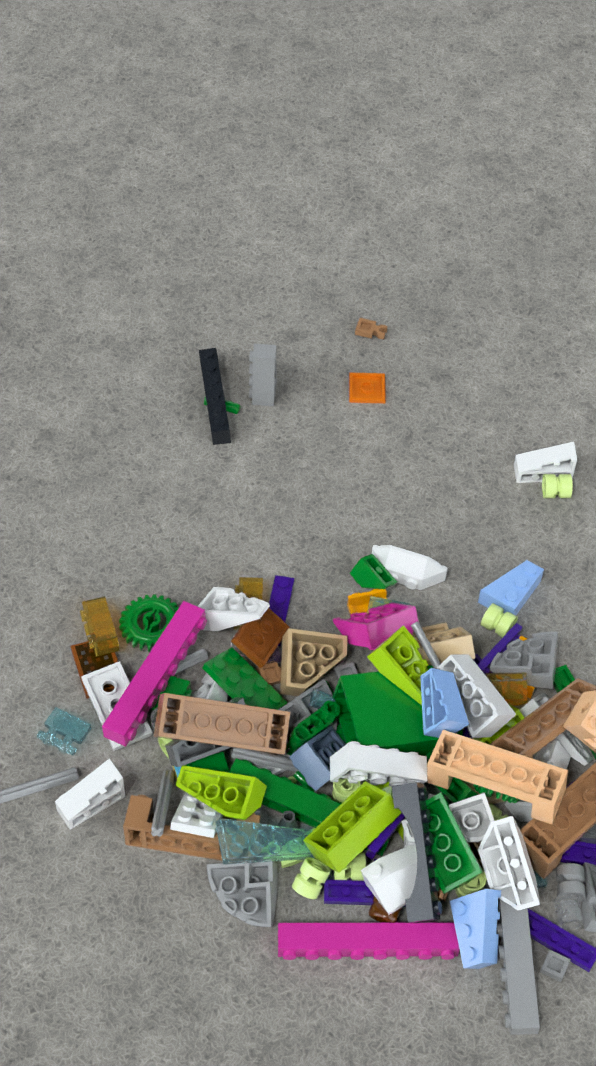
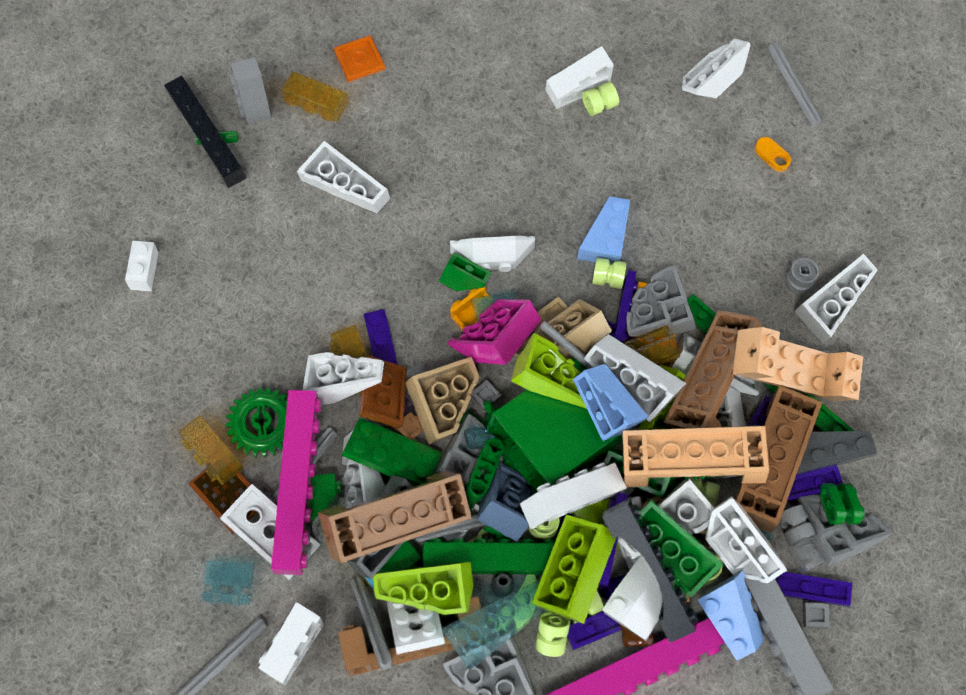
camera: 25 degrees left, 15 degrees up
(115, 474) = (141, 266): none -> white brick
(308, 468) = (341, 177): none -> white wedge
(315, 402) = (314, 97): none -> clear yellow brick

